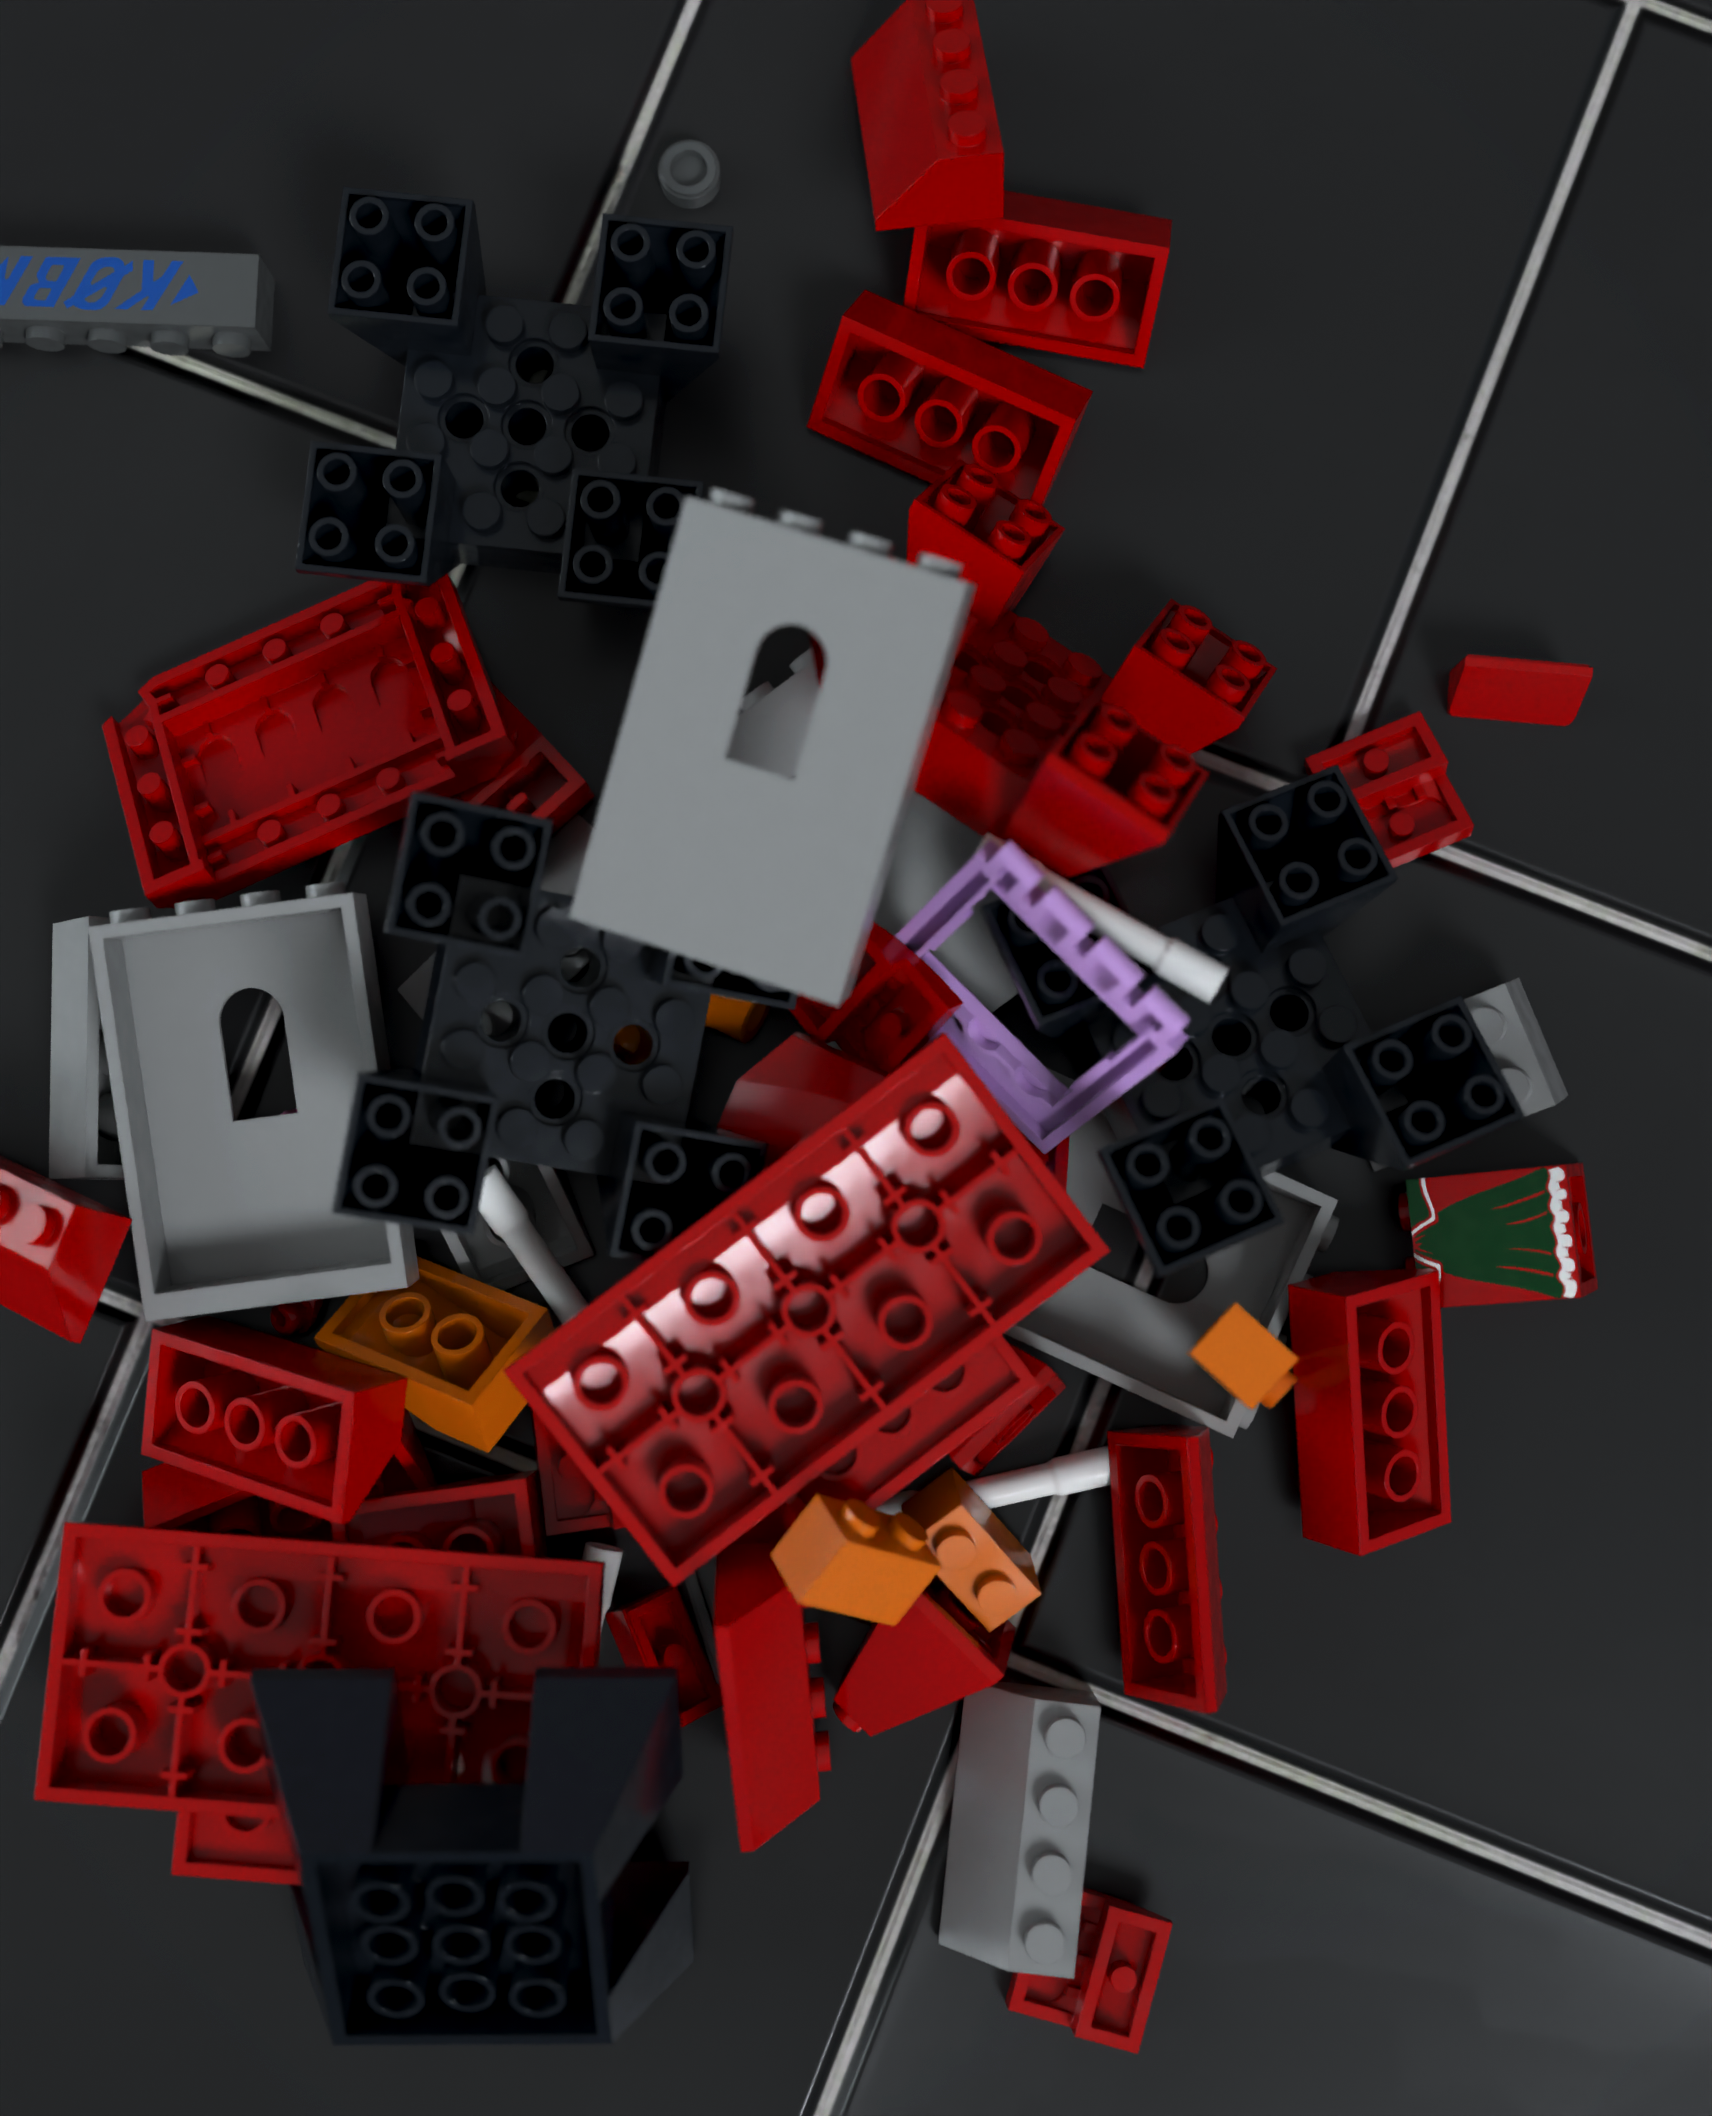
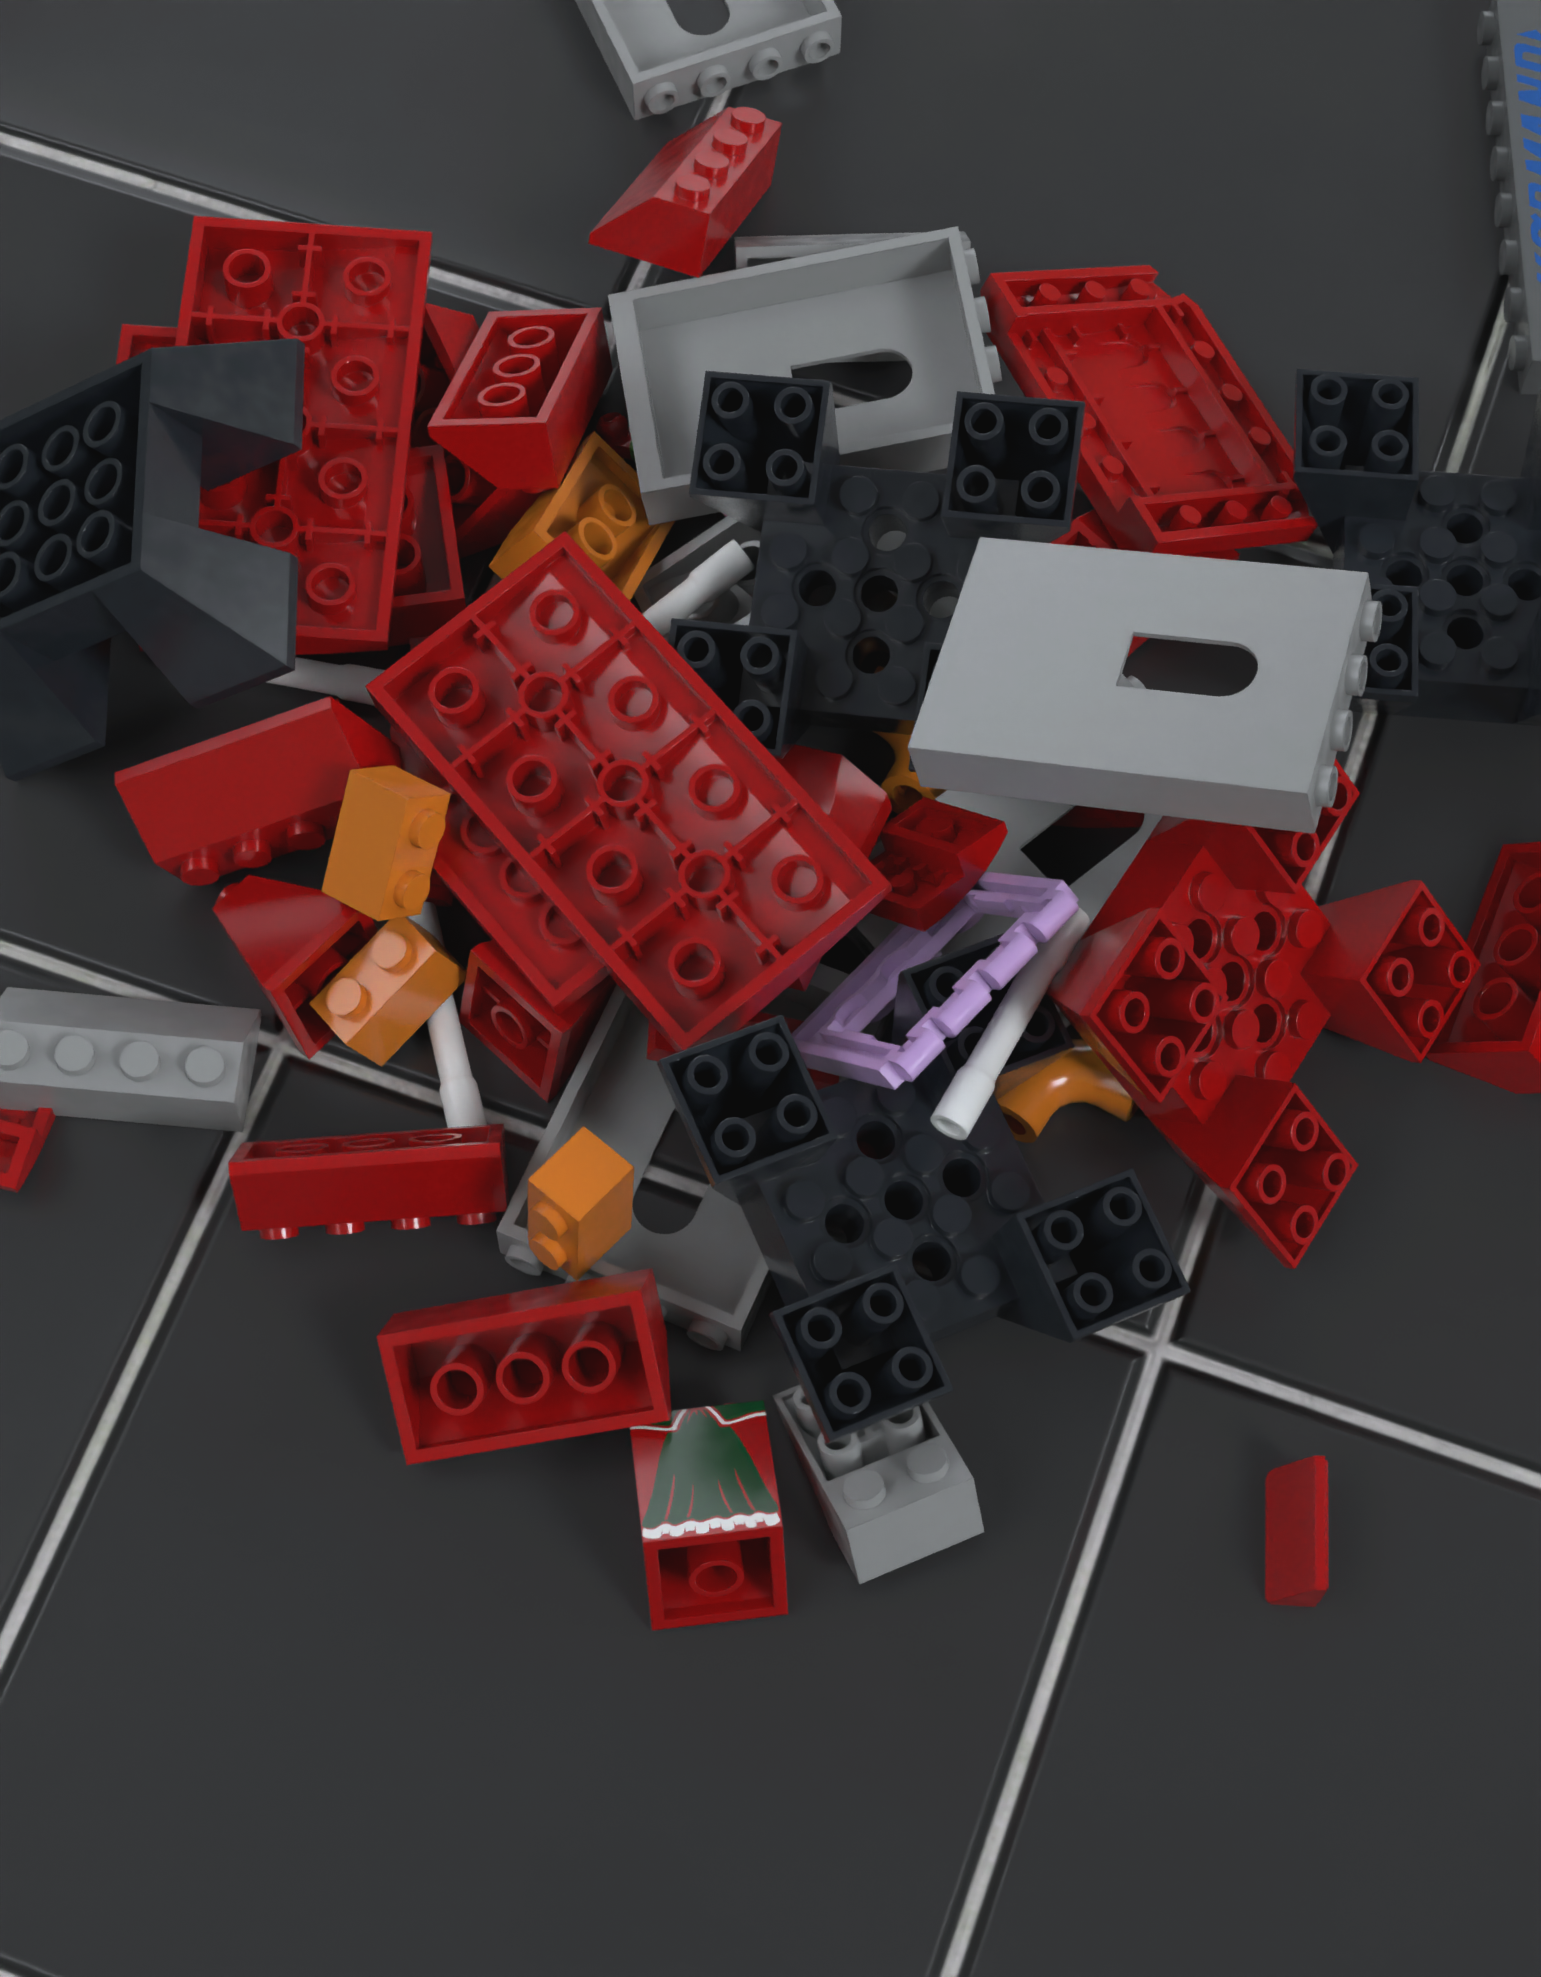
camera: 85 degrees right, 20 degrees down
(1401, 787) = (1171, 1404): red slope -> none

